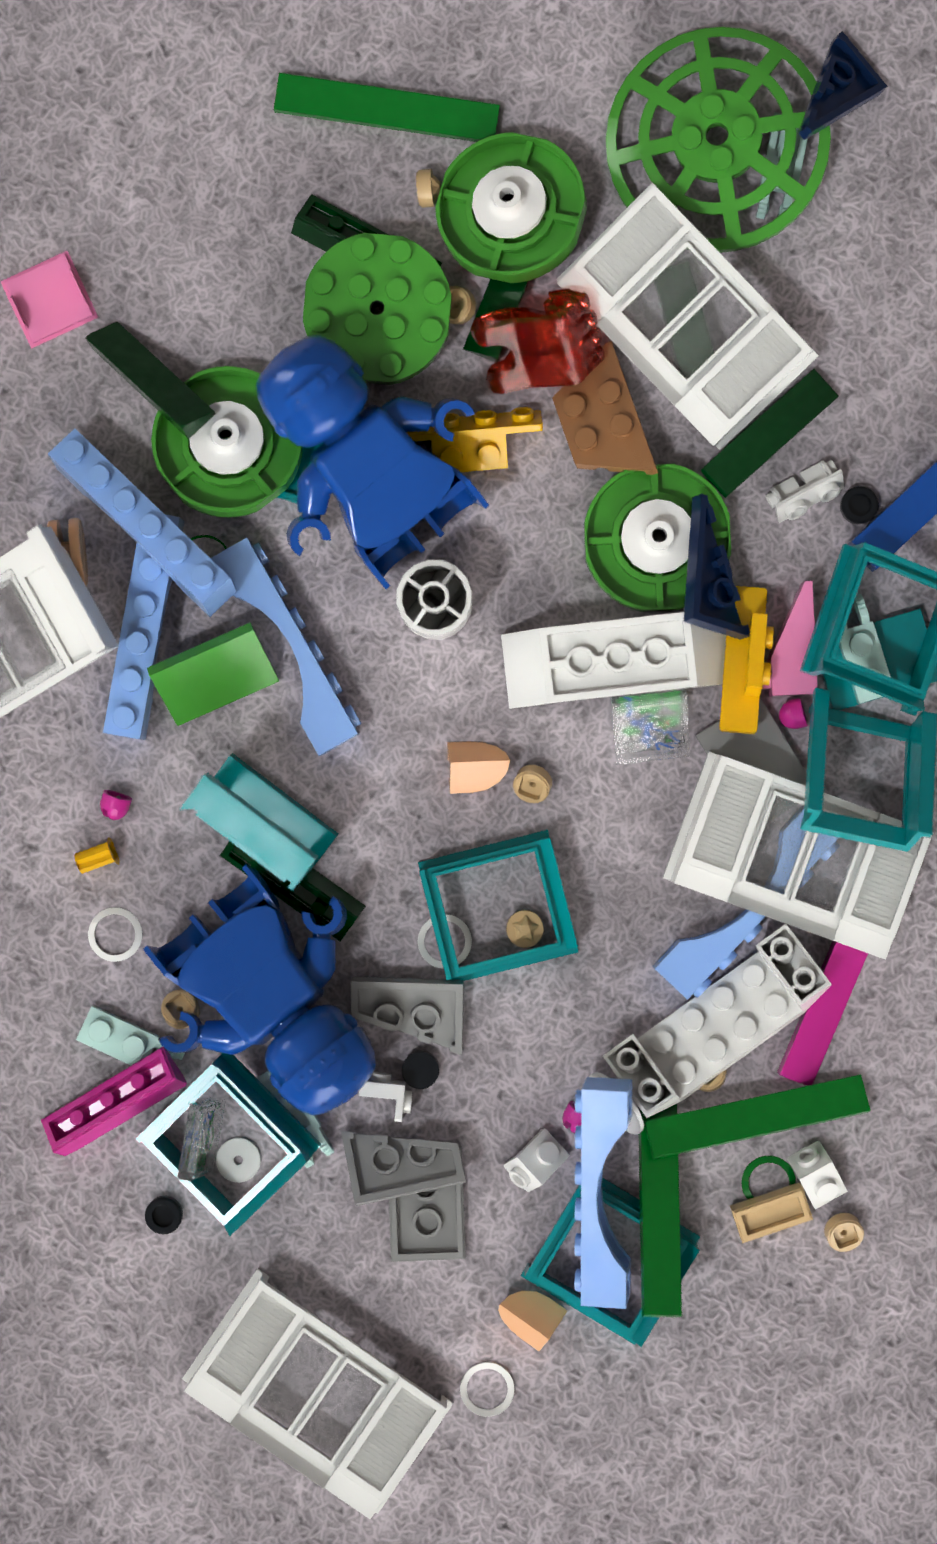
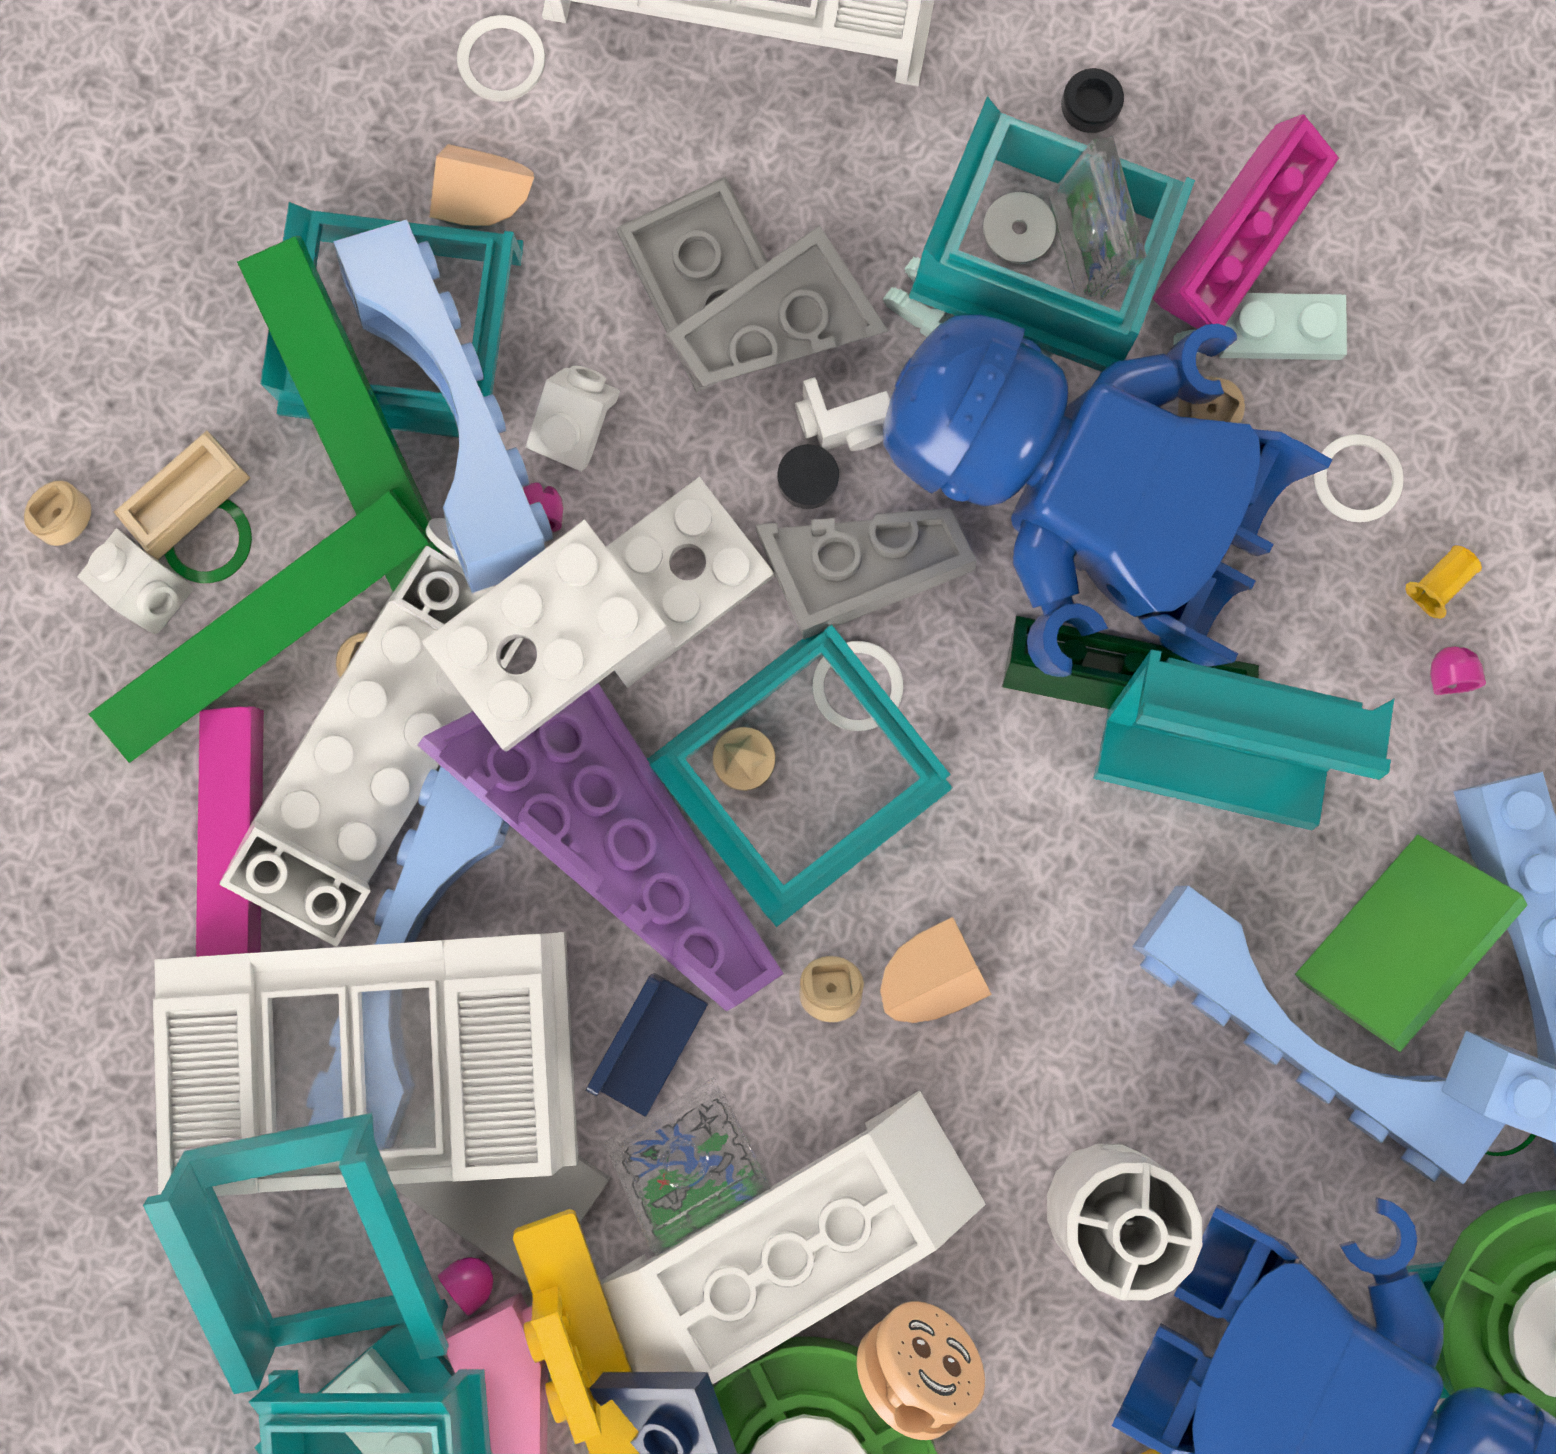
camera: 155 degrees right, 5 degrees down
(566, 1041) = (596, 612): none -> white bracket
(574, 568) = (920, 1370): none -> light nougat head
(619, 946) = (612, 827): none -> medium lavender wing
(643, 797) = (648, 1044): none -> dark blue panel

